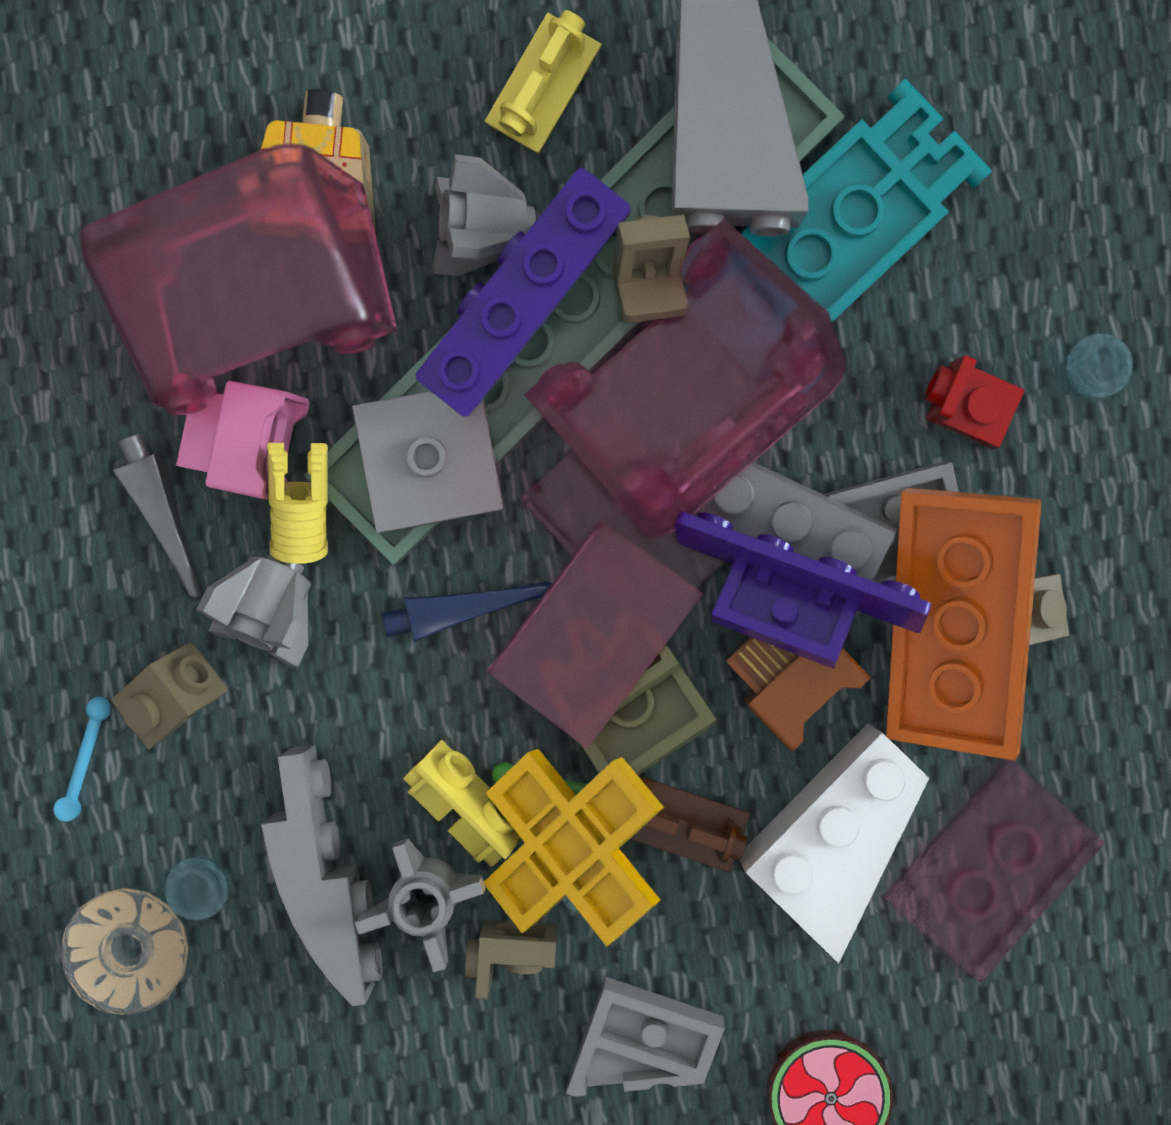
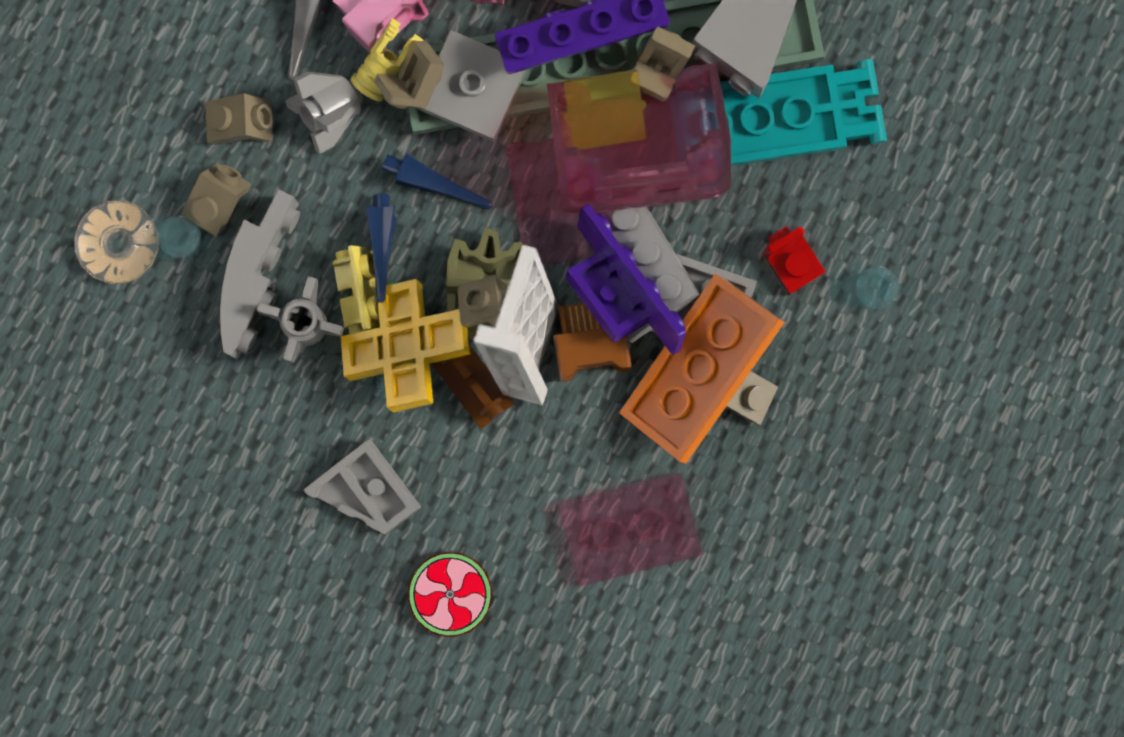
camera: 30 degrees right, 5 degrees down
(69, 807) = (139, 145): medium azure hinge -> none
(207, 810) = (215, 197): none -> dark tan bracket
(353, 504) = (416, 78): none -> dark tan bracket
(438, 710) = (382, 229): none -> dark blue piece
(505, 945) = (335, 388): dark tan bracket -> none
(594, 633) = (491, 237): clear pink piece -> none
(620, 376) = (604, 109): none -> clear yellow piece
(646, 726) = (481, 301): none -> dark tan bracket
(719, 748) = (521, 332): none -> white fence
(837, 838) = (552, 443): white wedge -> none

